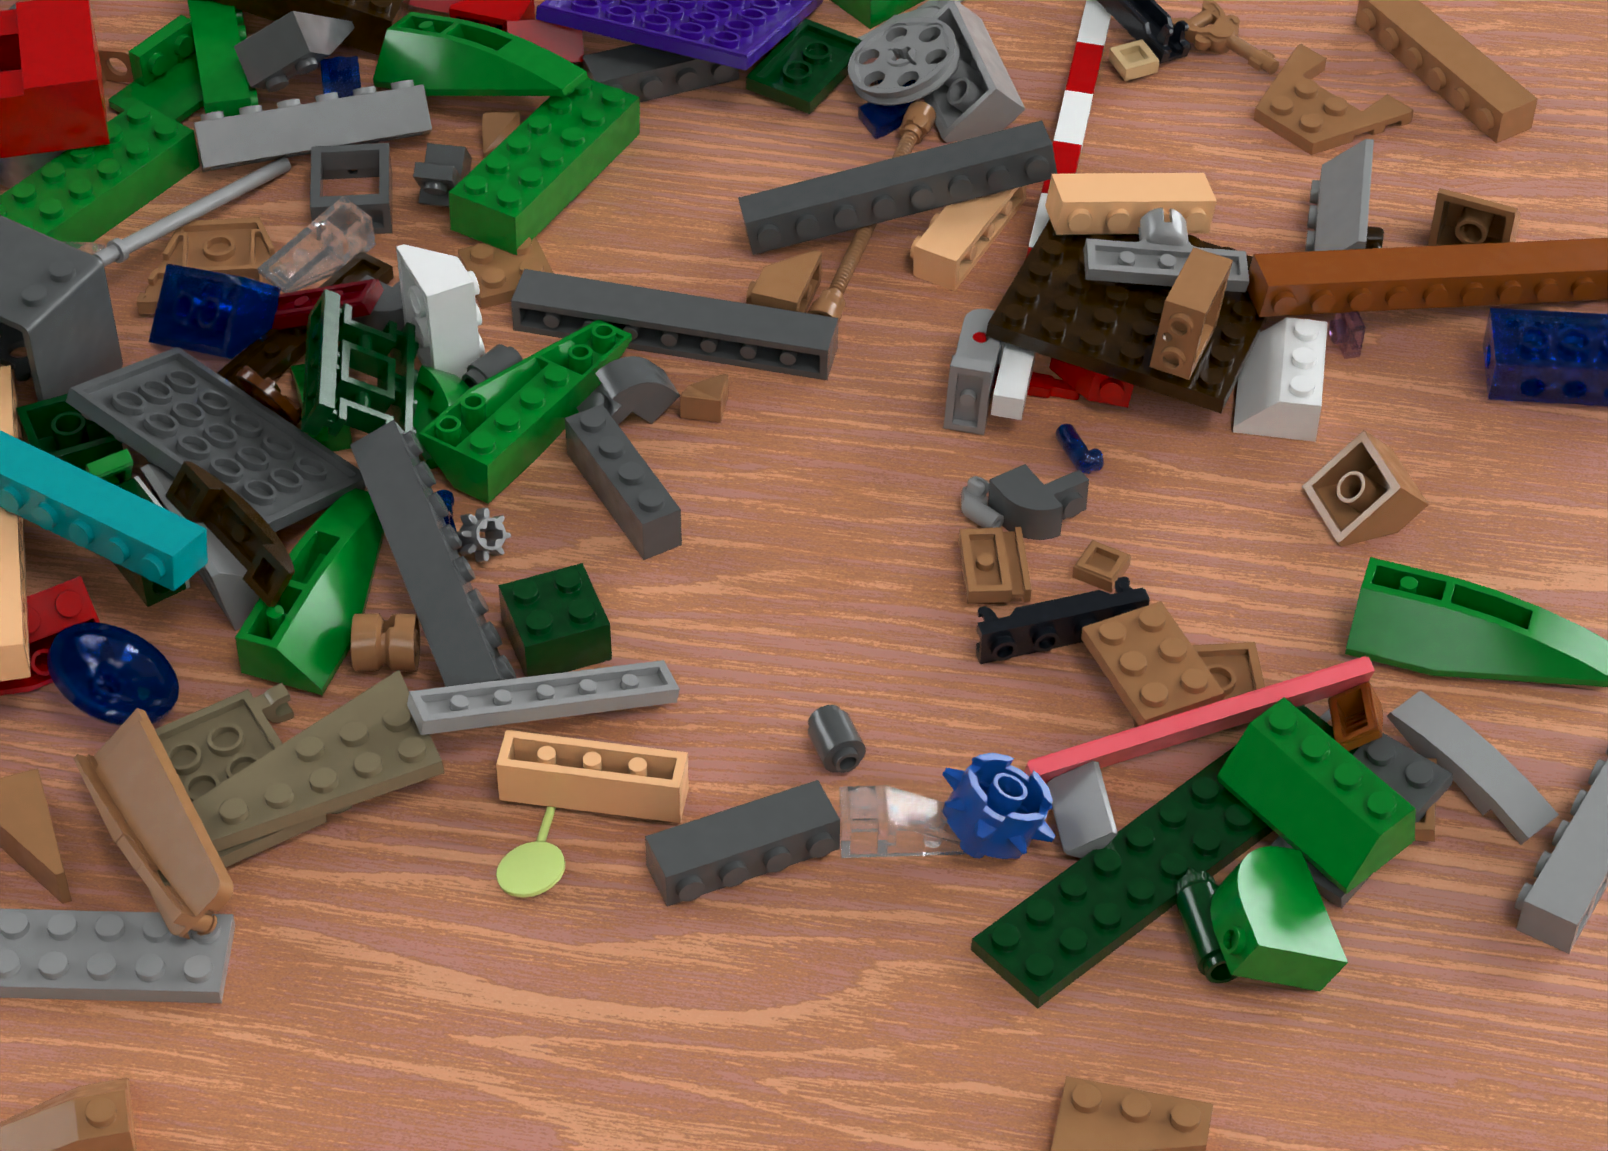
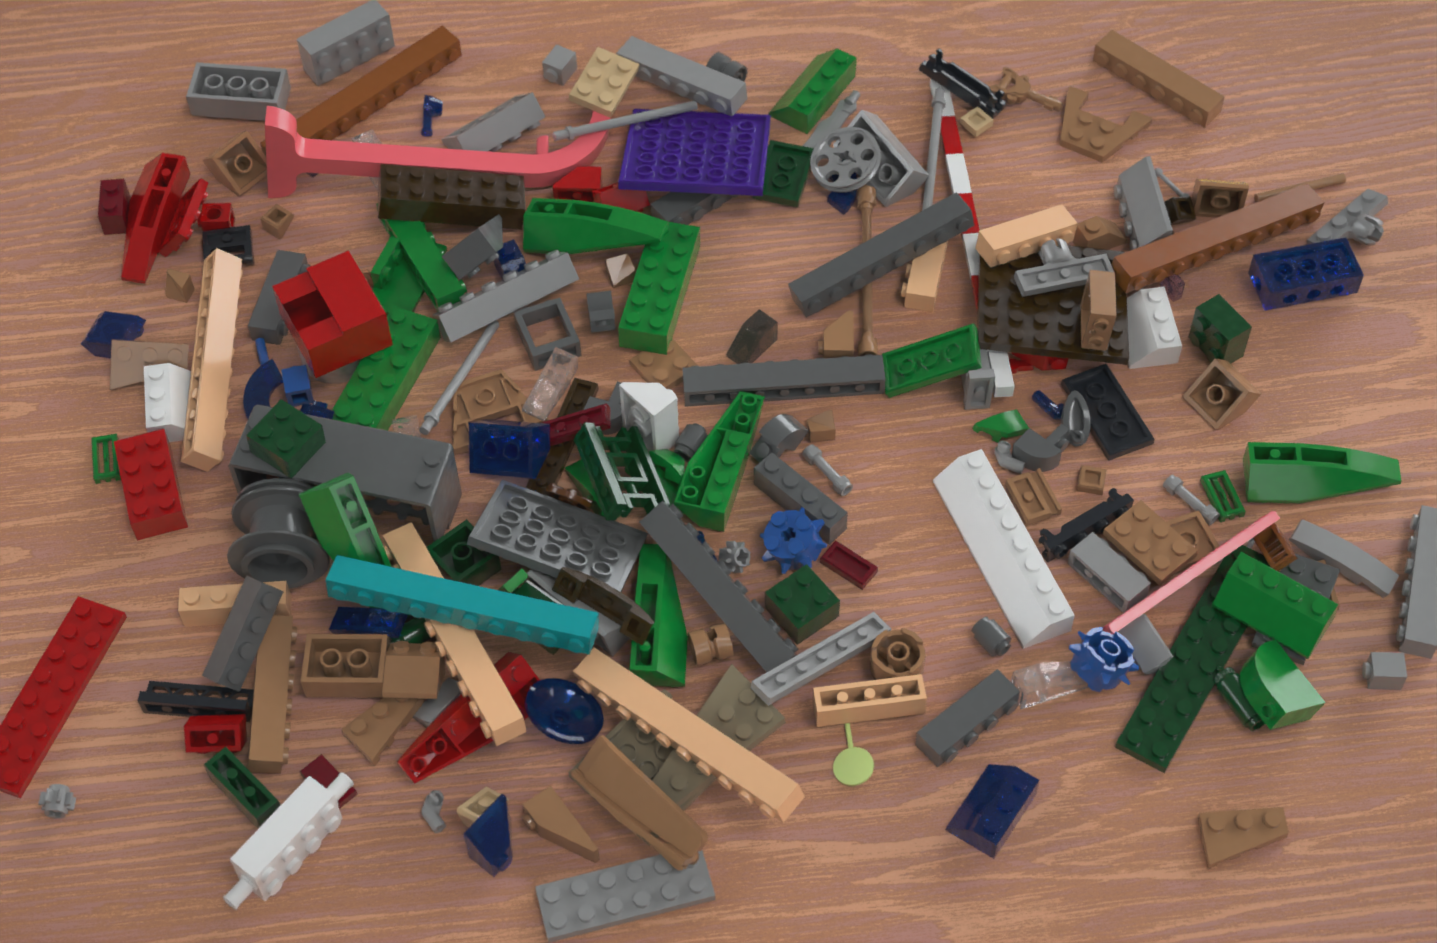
camera: 15 degrees left, 10 degrees up
(276, 747) = (689, 735): none -> light nougat brick
(580, 526) = (792, 539): none -> blue brick
(658, 257) = (753, 338): none -> clear smoke slope
(659, 592) = (849, 565): none -> dark red tile
(670, 719) = (897, 654): none -> medium nougat brick
(697, 478) = (841, 484): none -> light grey bar
(729, 985) = (993, 807): none -> clear blue slope
(910, 340) = (931, 360): none -> green tile
(911, 627) = (1004, 550): none -> white slope
(986, 456) = (1002, 425): none -> green slope
(1065, 689) = (1108, 572): none -> light grey brick
(1081, 24) = (938, 104): none -> light grey bar
(1111, 474) = (1076, 418): none -> dark grey arm
(1170, 480) = (1113, 417): none -> black tile
(1234, 604) = (1174, 485): none -> light grey bar
(1255, 232) = (1098, 234): none -> medium nougat slope
(1309, 661) = (1228, 513): none -> green tile
(1394, 399) = (1219, 330): none -> dark green brick
(1404, 231) = (1180, 210): none -> dark brown slope
(1422, 224) = (1159, 173): none -> light grey hinge
(1474, 945) = (1385, 671): none -> light grey brick

